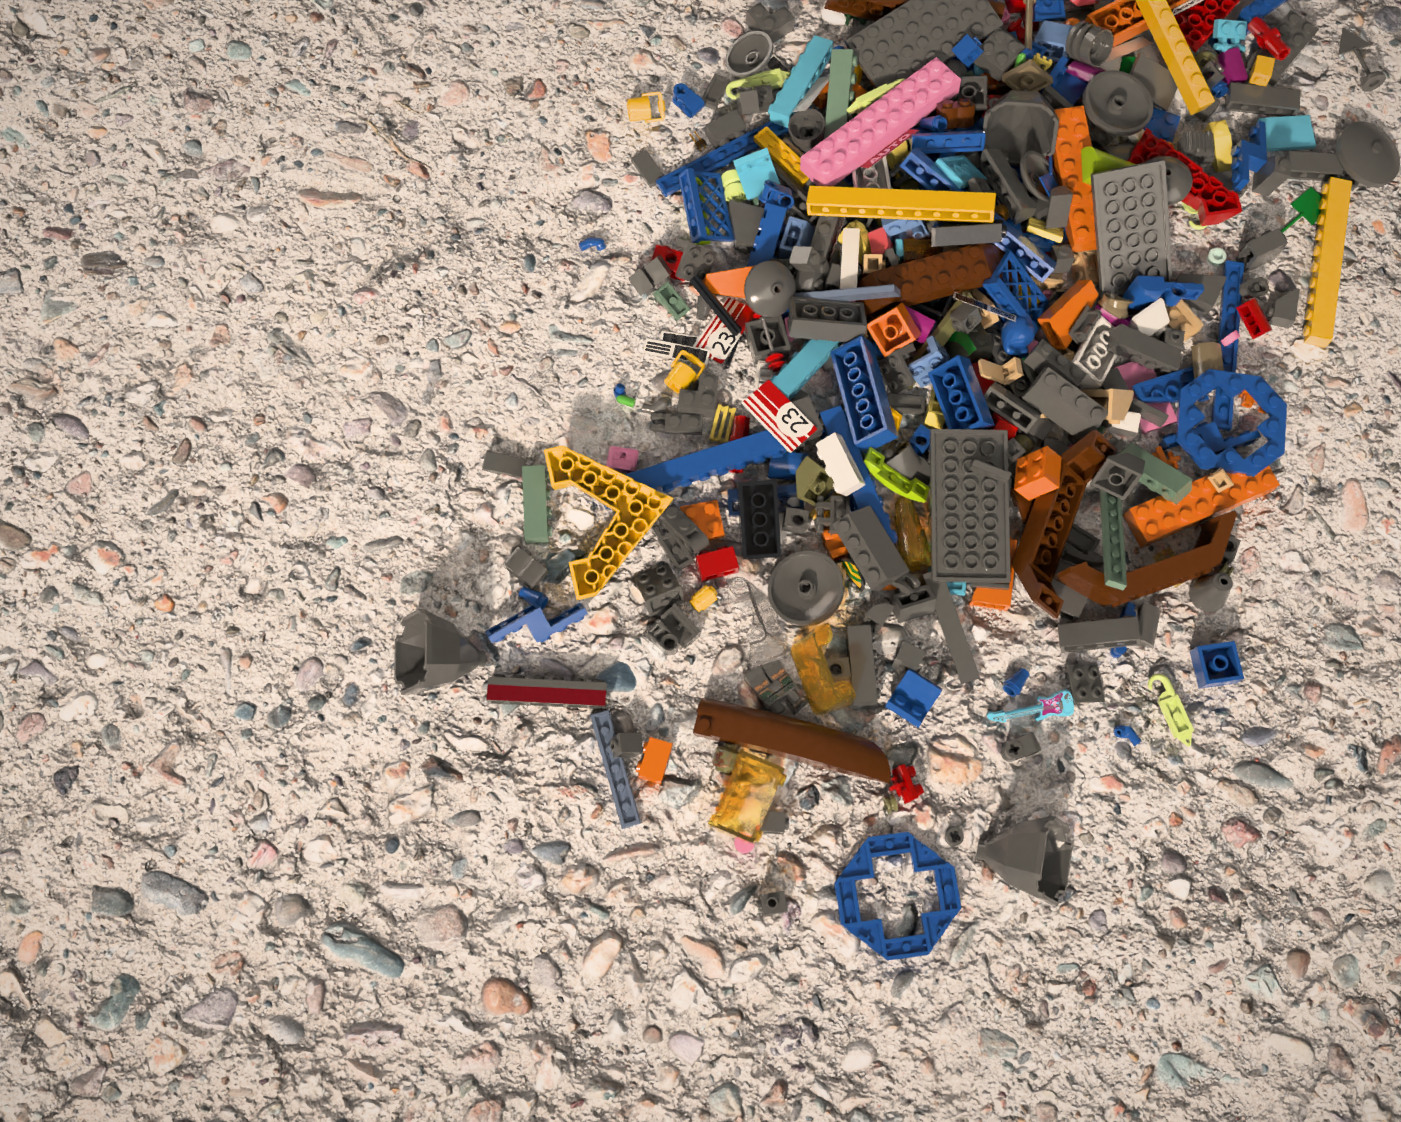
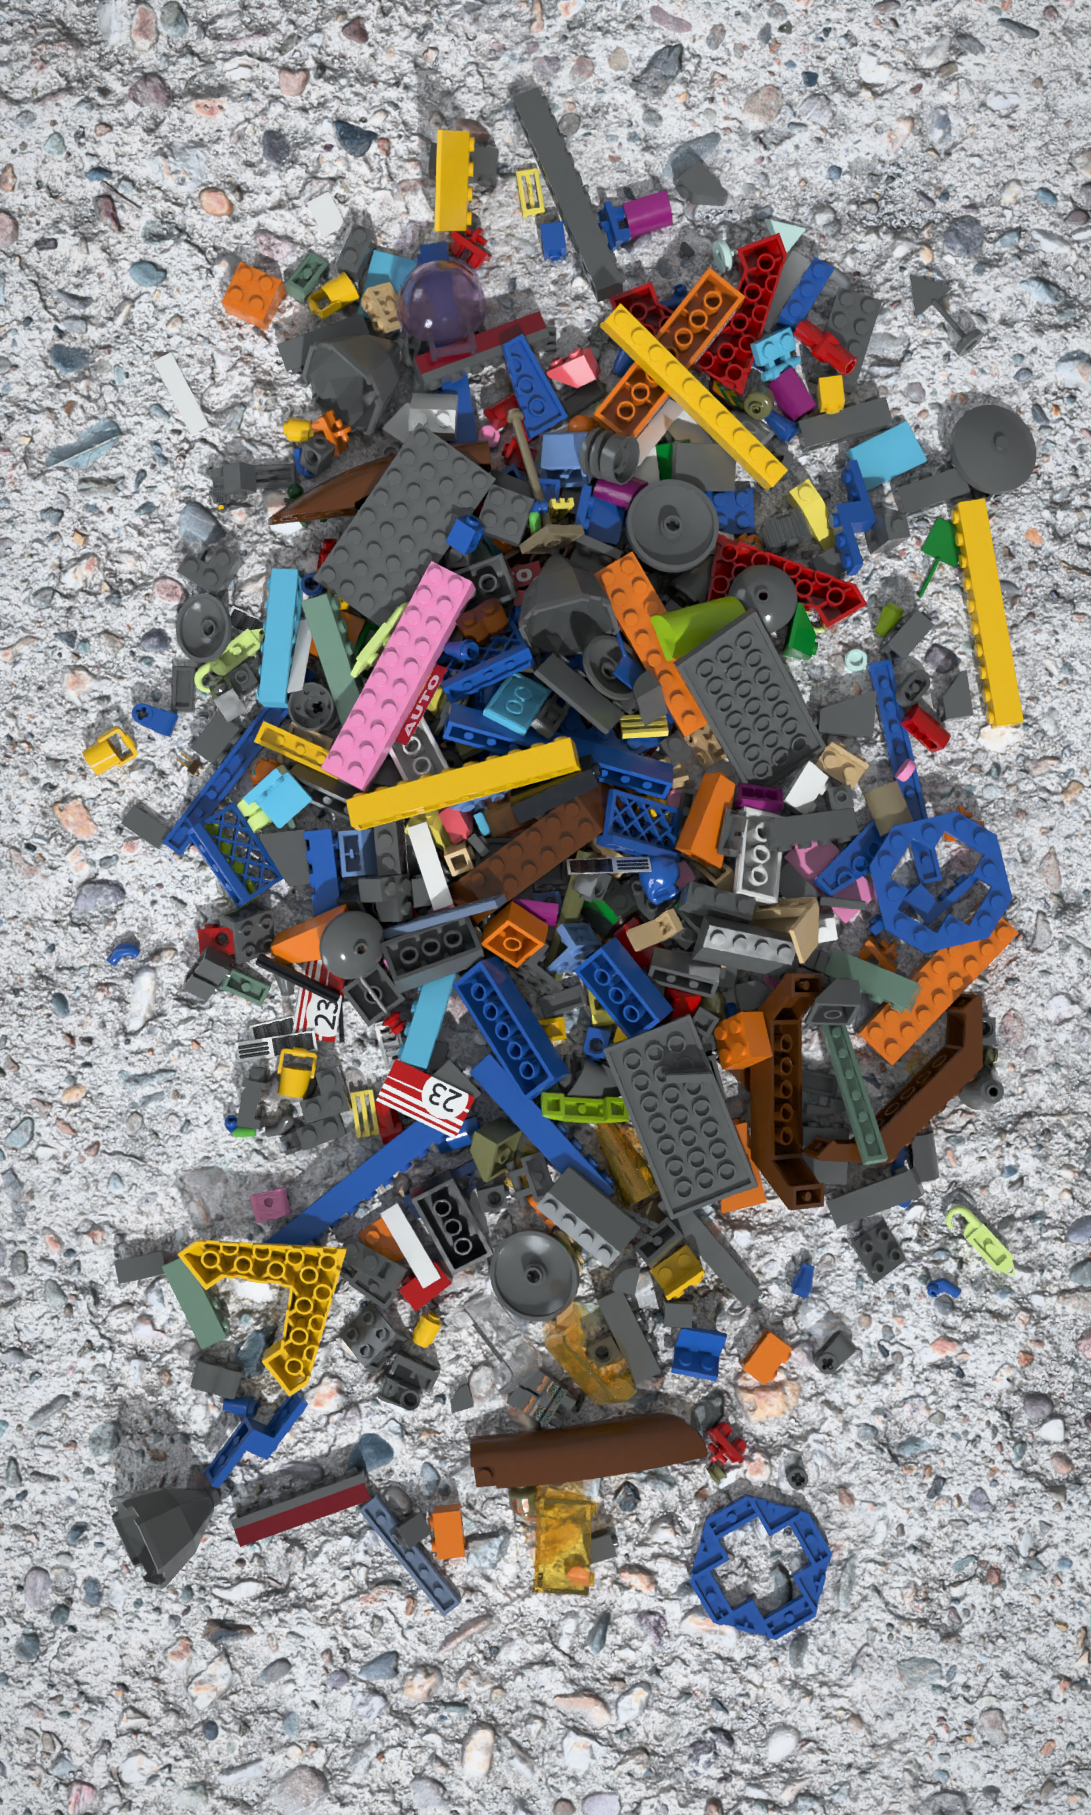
camera: 20 degrees left, 15 degrees up
(645, 376) = (253, 1098): none -> dark grey hips
(707, 664) = (462, 1399): none -> dark grey tile
(718, 528) = (410, 1245): none -> white sticker
(772, 903) = (633, 1630): dark grey brick -> none
(774, 193) = (315, 814): blue piece -> none
(840, 464) = (517, 1131): white brick -> none
(919, 632) = (678, 1272): none -> yellow bracket
(965, 727) = (766, 1357): none -> orange brick
(1002, 211) = (583, 730): pearl gold plate -> none
(1032, 857) = (889, 1482): dark grey piece -> none
(1057, 704) = (857, 1288): medium azure piece -> none
(1115, 305) = (759, 789): dark tan piece -> none
(1148, 289) = (794, 759): blue plate -> none
(1183, 220) = (800, 636): none -> green slope
(1208, 70) = (770, 424): dark grey brick -> none
(1216, 665) = (1014, 1174): blue brick -> none
(1220, 480) = (951, 961): tan slope -> none
(1254, 231) = (888, 619): none -> lime cone

